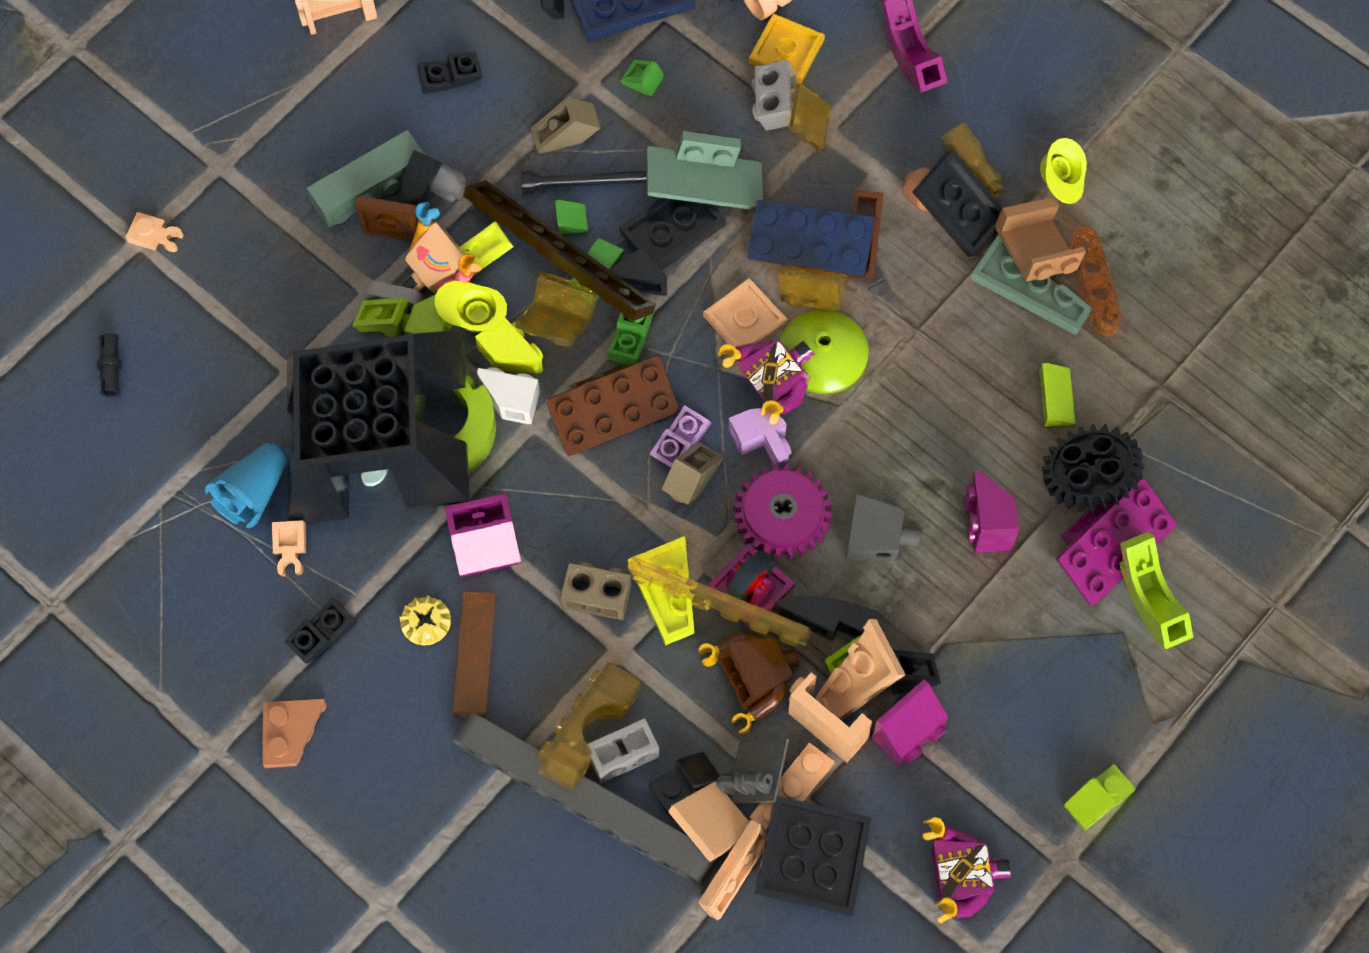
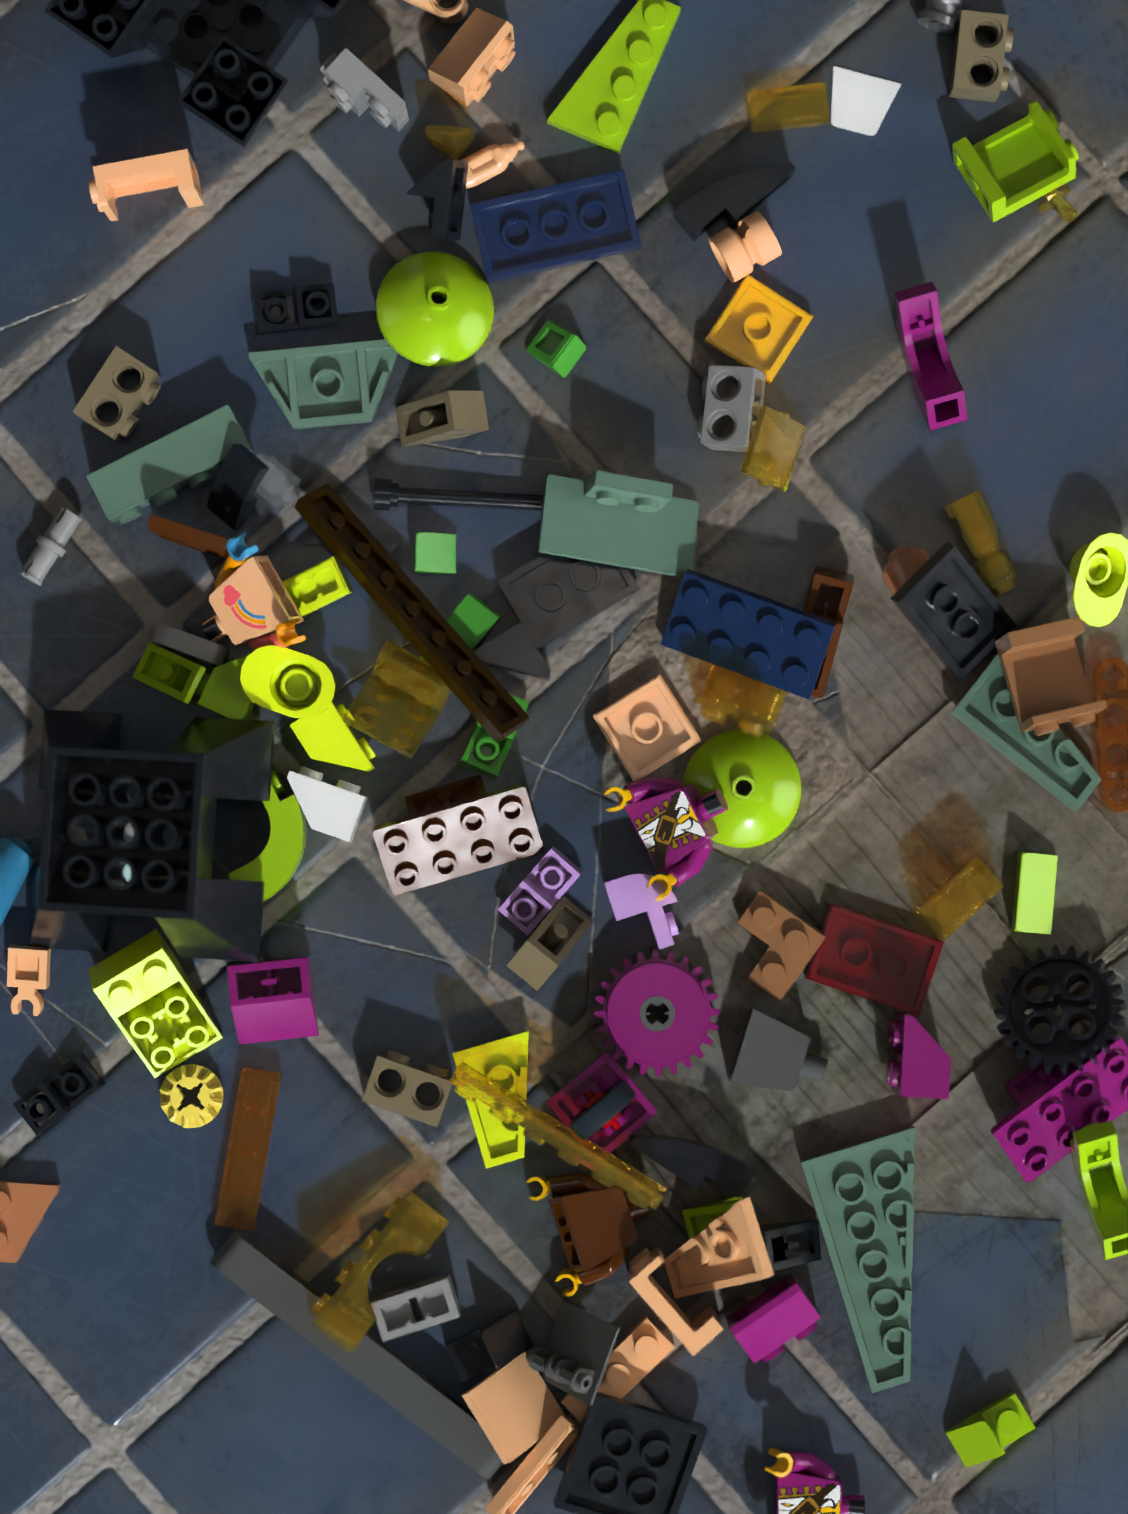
camera: 10 degrees right, 20 degrees up
(283, 244) = (50, 546): none -> light grey pin
(320, 137) = (107, 389): none -> dark tan brick
(391, 553) = (154, 1003): none -> neon yellow slope
(478, 114) = (327, 381): none -> sand green wing
(551, 59) = (432, 331): none -> lime dish
(877, 452) = (790, 944): none -> medium nougat plate
(941, 456) = (875, 959): none -> dark red tile
(974, 653) = (867, 1227): none -> sand green wing
(1000, 401) = (958, 897): none -> clear yellow brick

